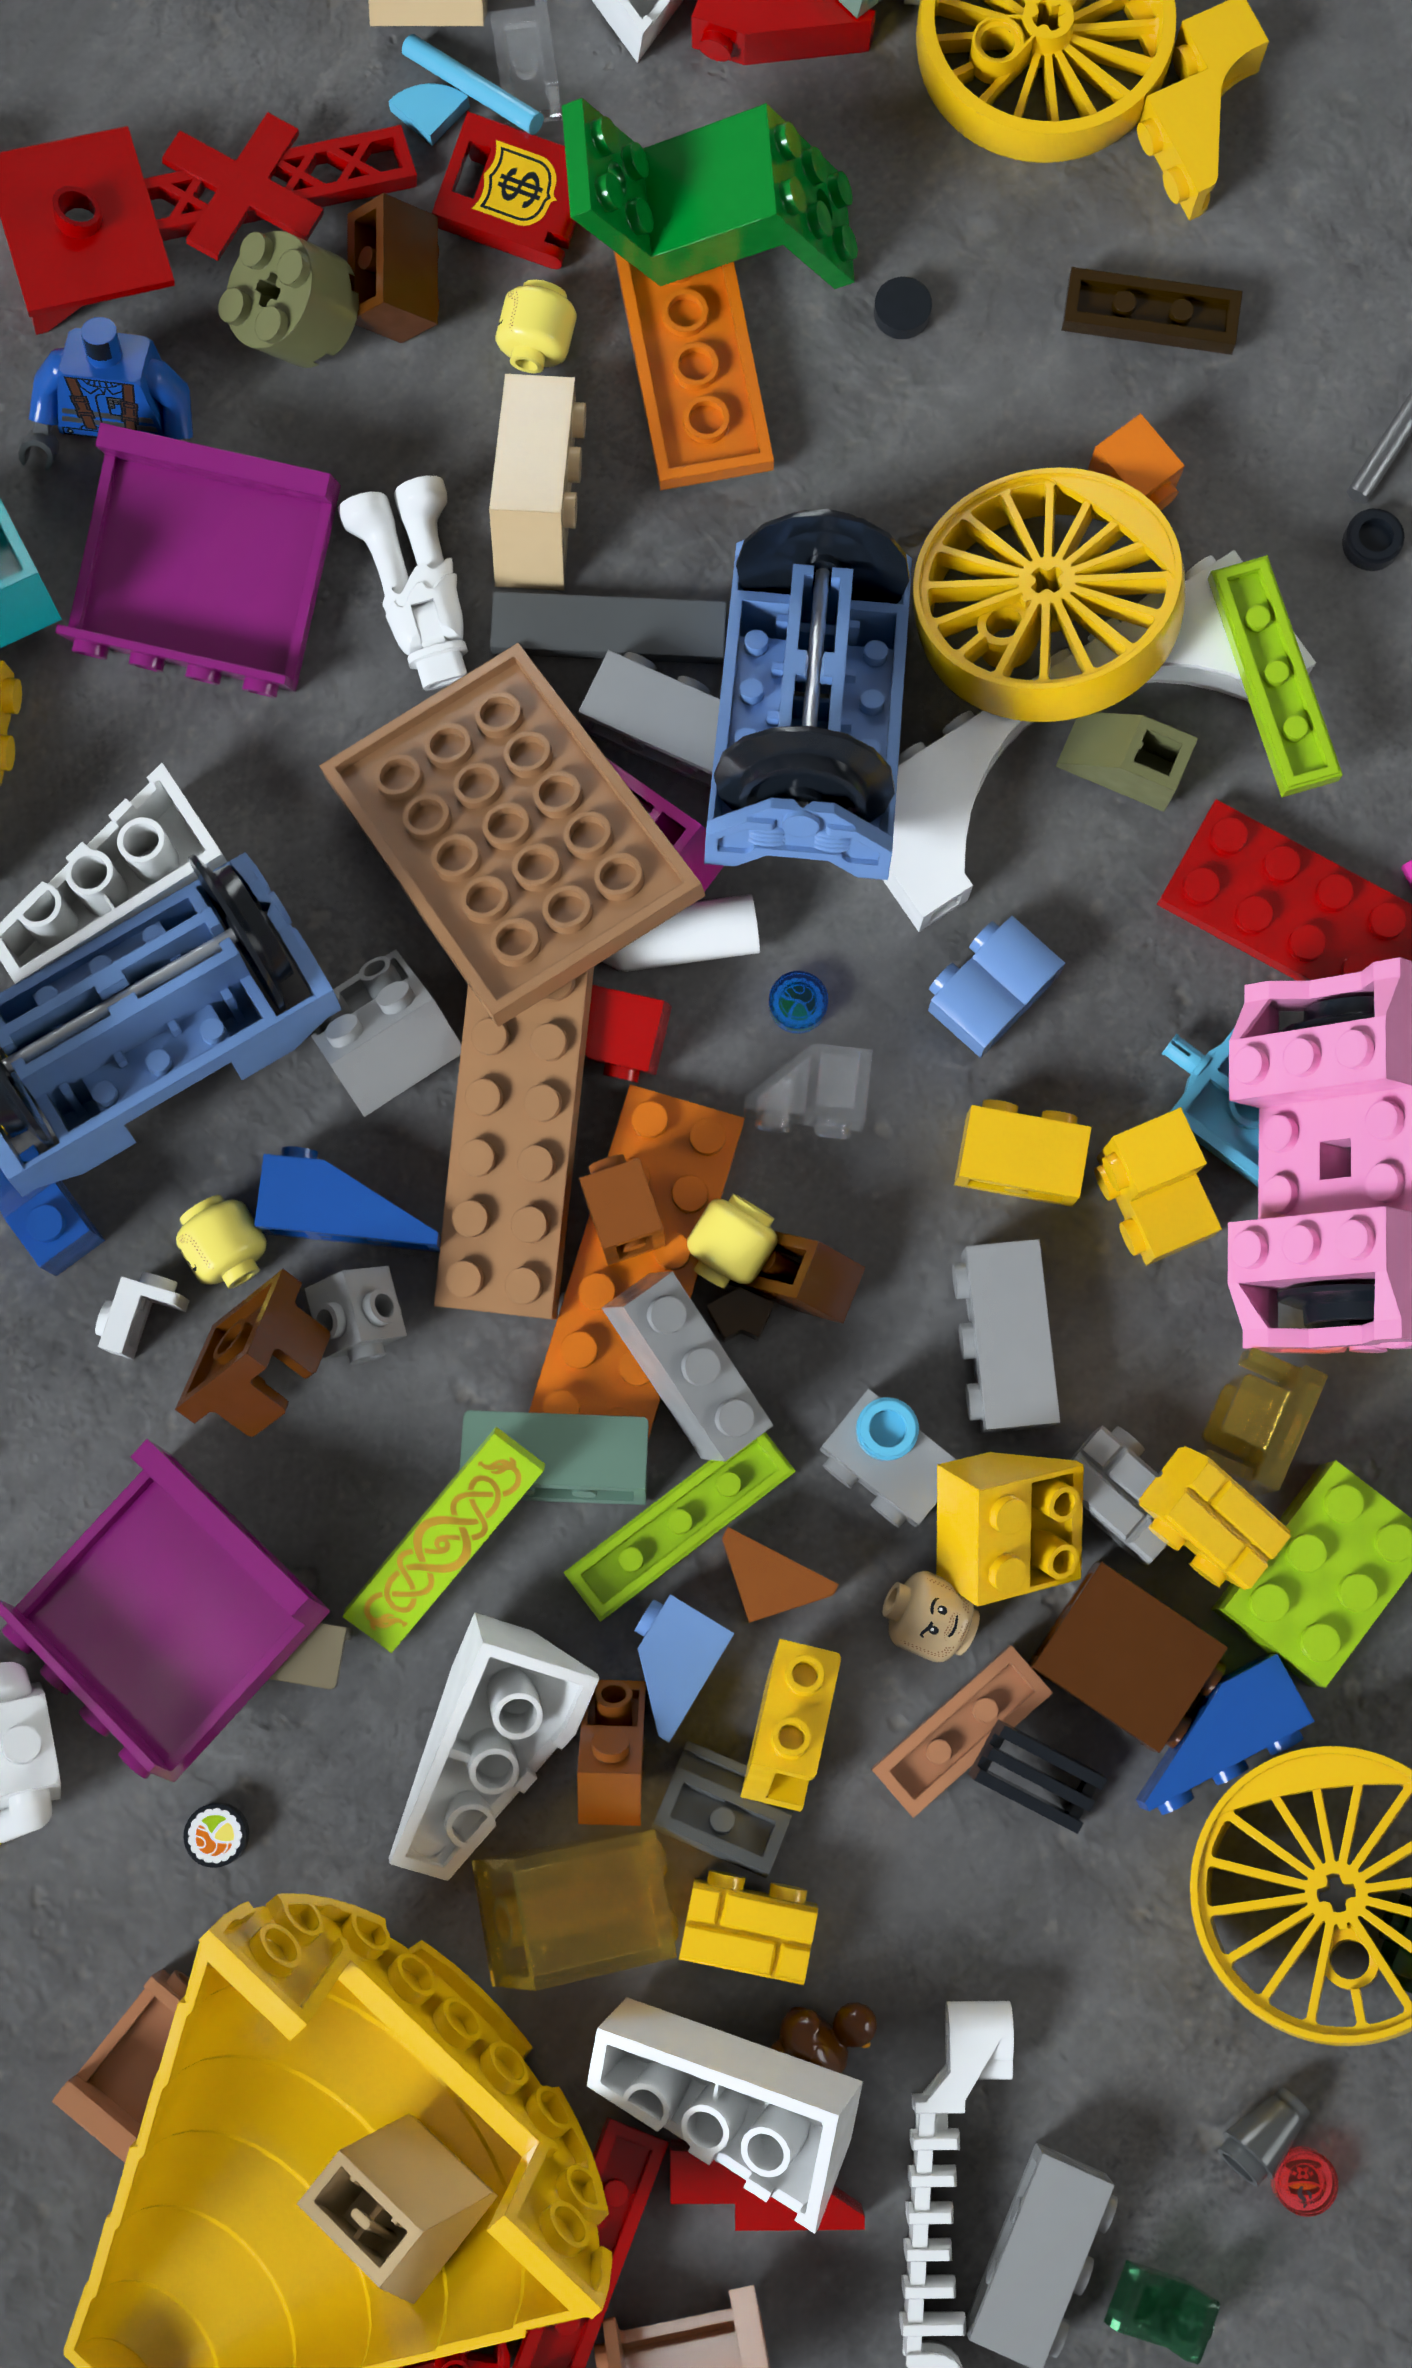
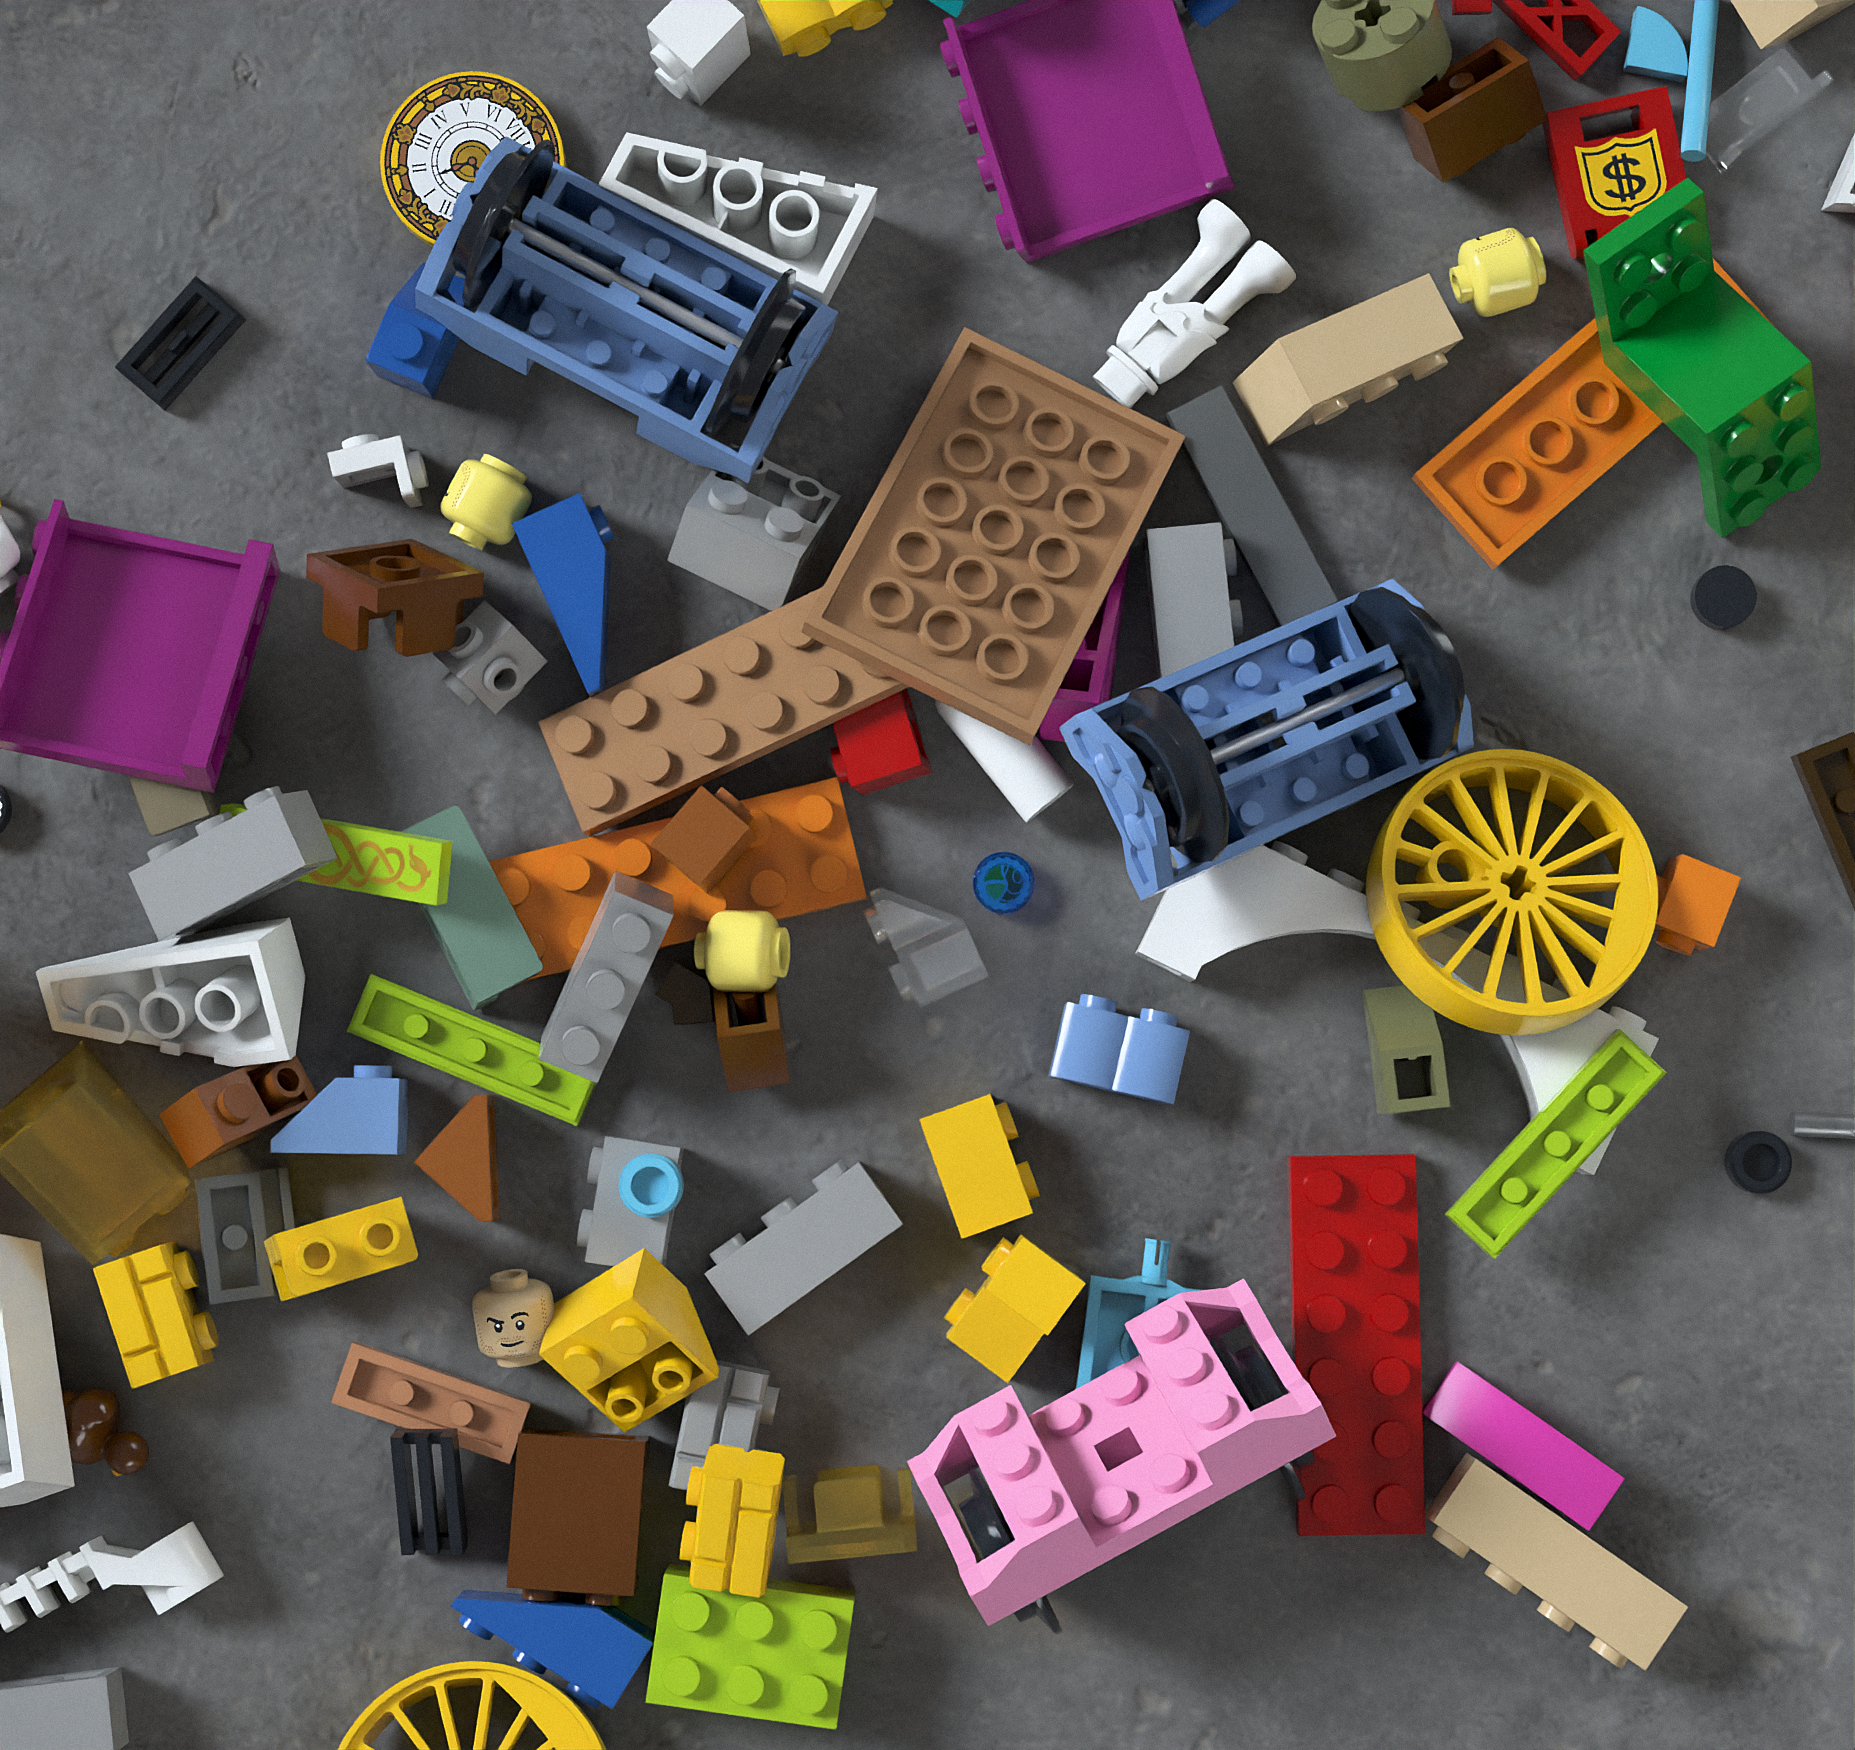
camera: 60 degrees right, 5 degrees up
(399, 1631) = (232, 862): none -> light grey brick

